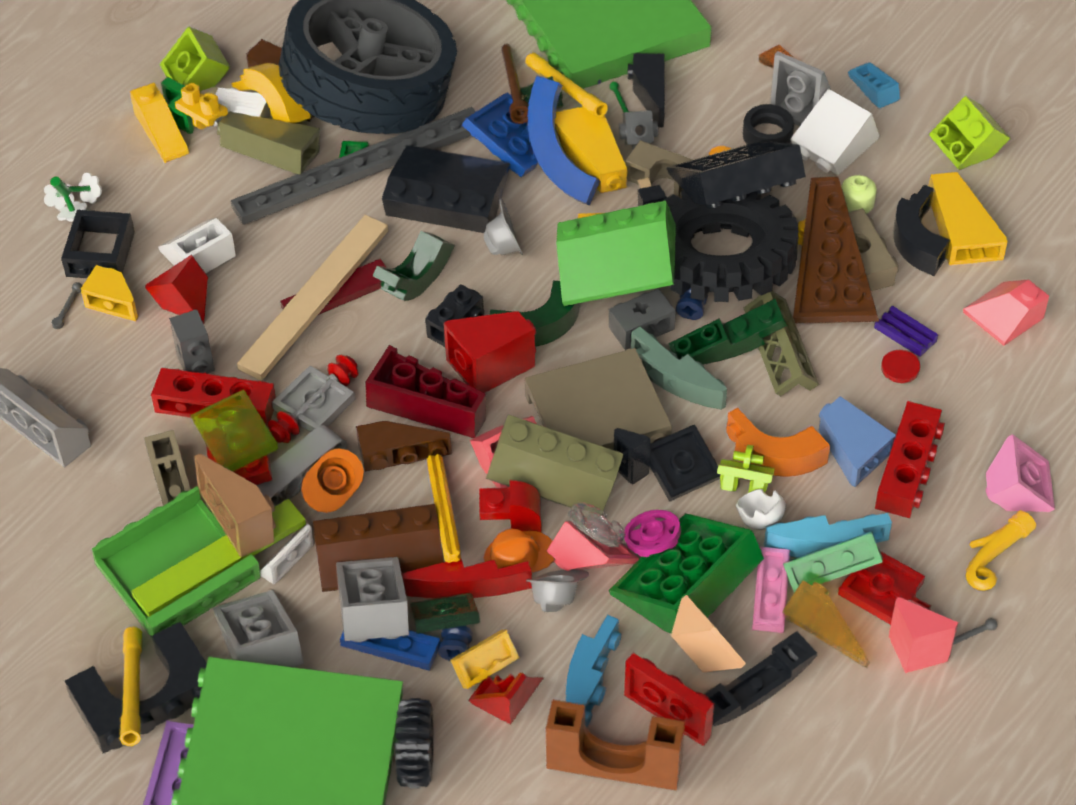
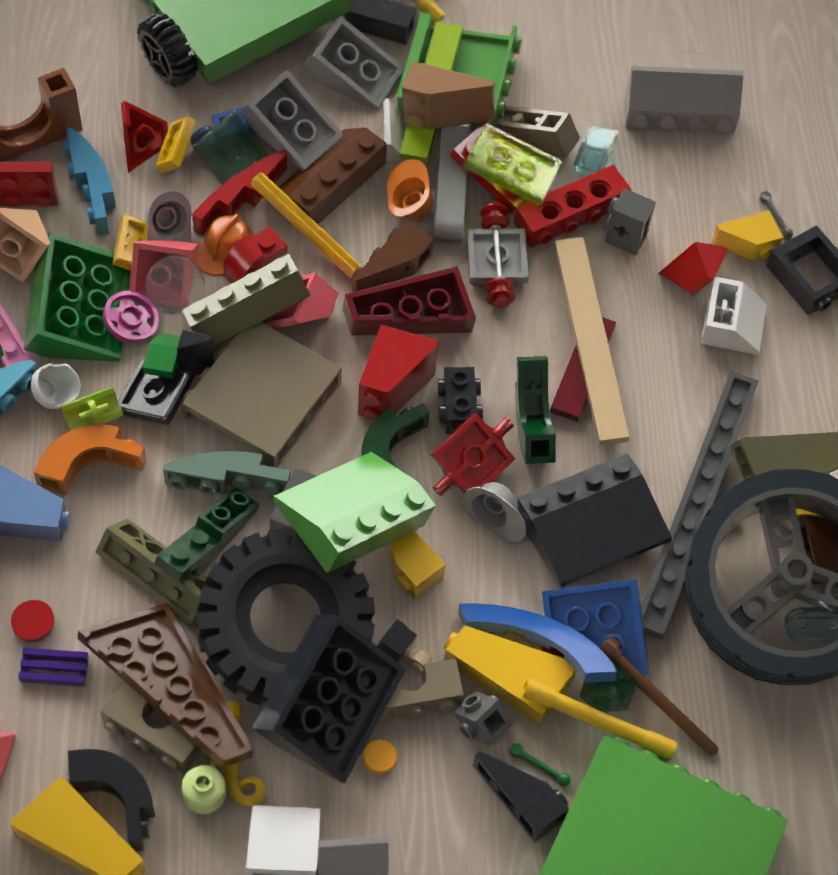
camera: 135 degrees right, 10 degrees up
(131, 433) = (594, 150): none -> clear light blue slope
(487, 270) = (473, 455): none -> red plate
(599, 594) = (129, 231): none -> yellow plate
(643, 483) = (162, 356): none -> green slope
(768, 114) = (361, 799): black tyre -> none

